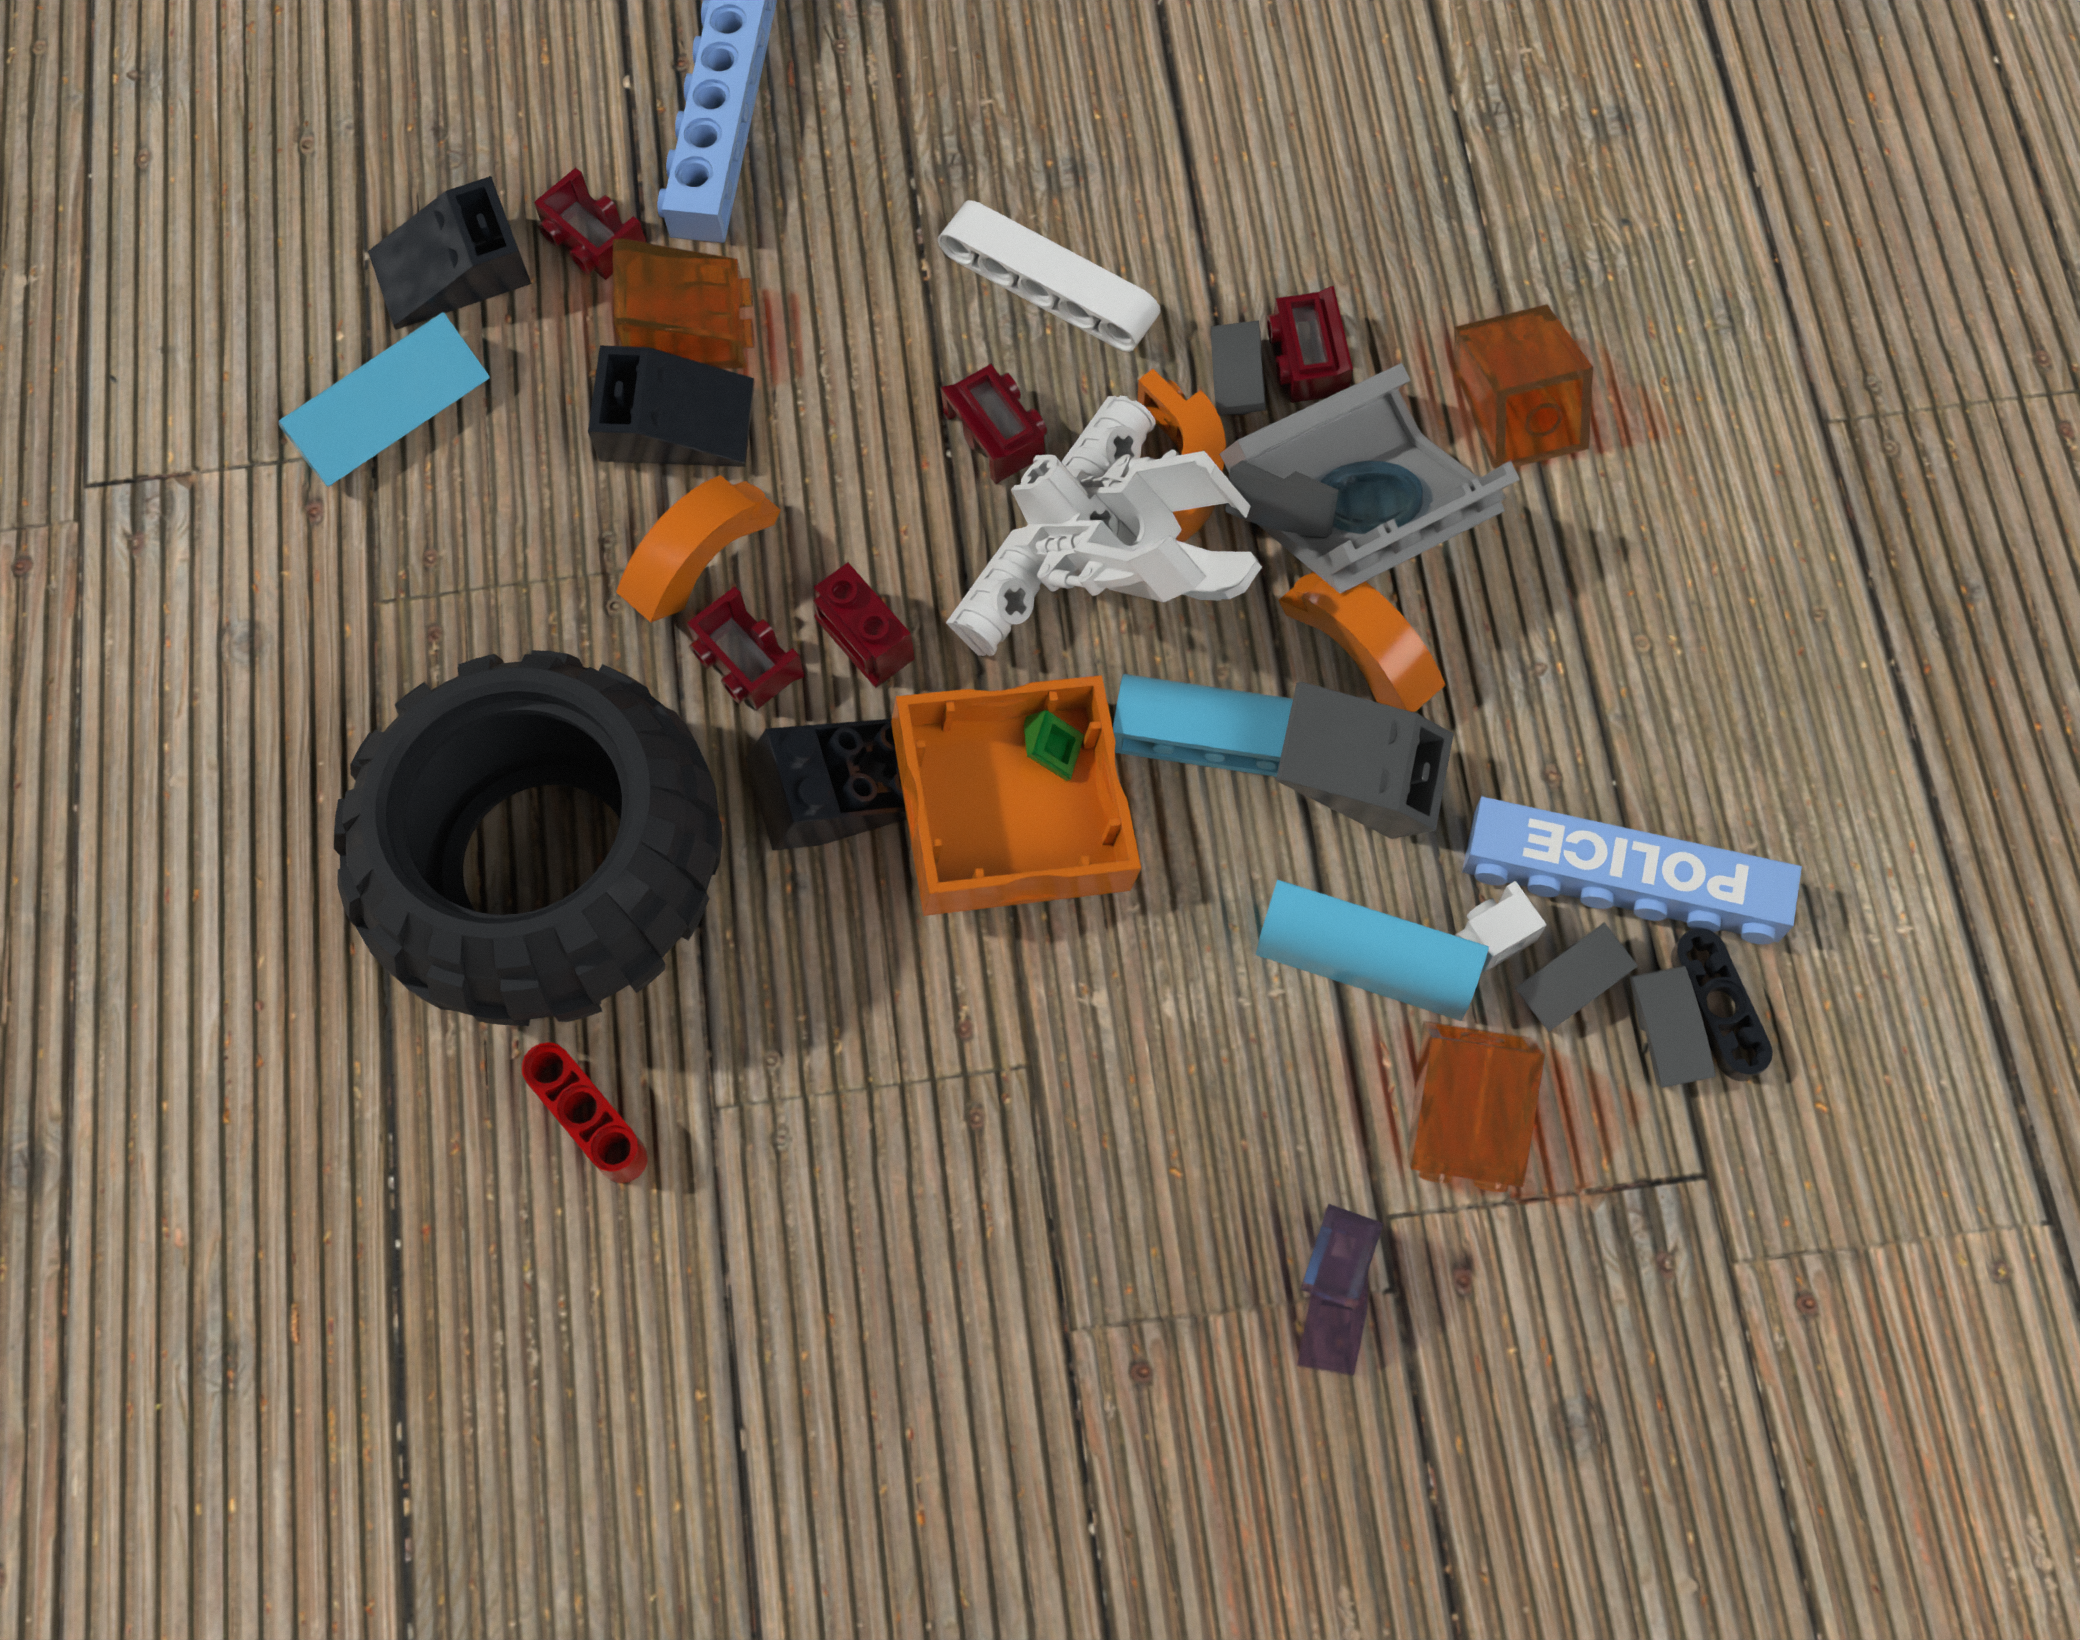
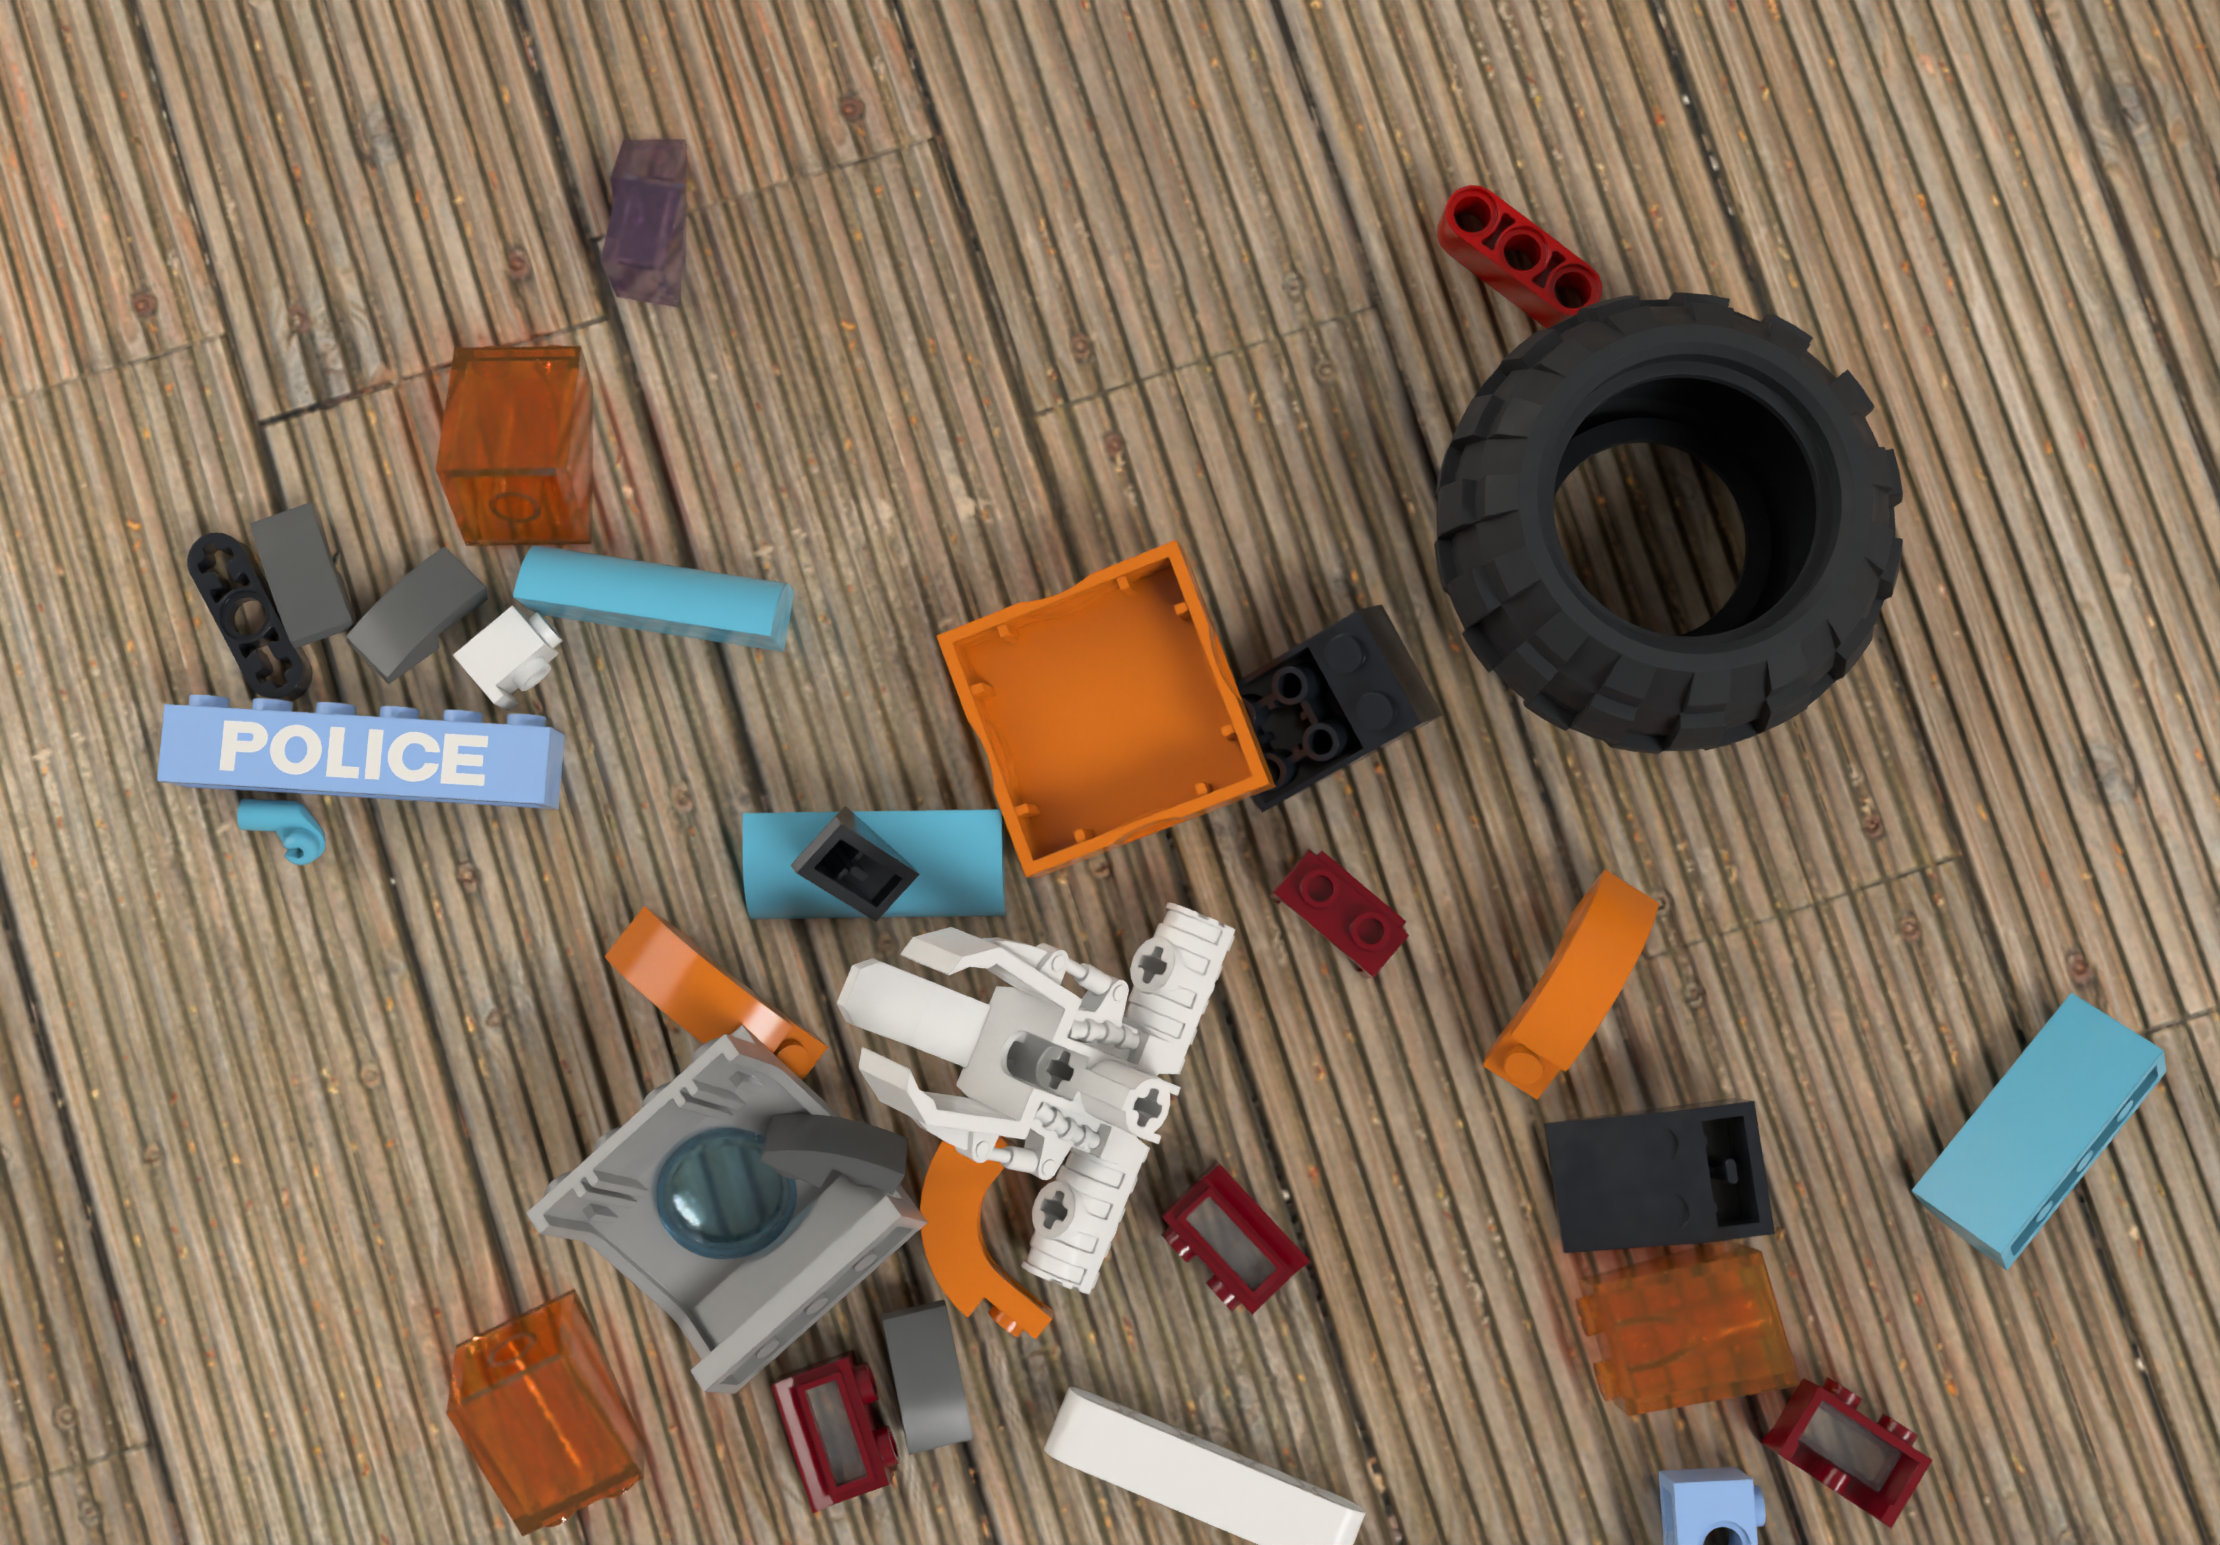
camera: 165 degrees right, 15 degrees up
(449, 255) = (2022, 1365): black slope -> none
(742, 651) = (1480, 855): dark red window -> none
(1052, 743) = (1075, 793): green slope -> none
(1239, 703) = (855, 865): none -> black slope
(1365, 760) = (686, 818): dark grey slope -> none
(1688, 826) = (290, 822): none -> medium azure arm

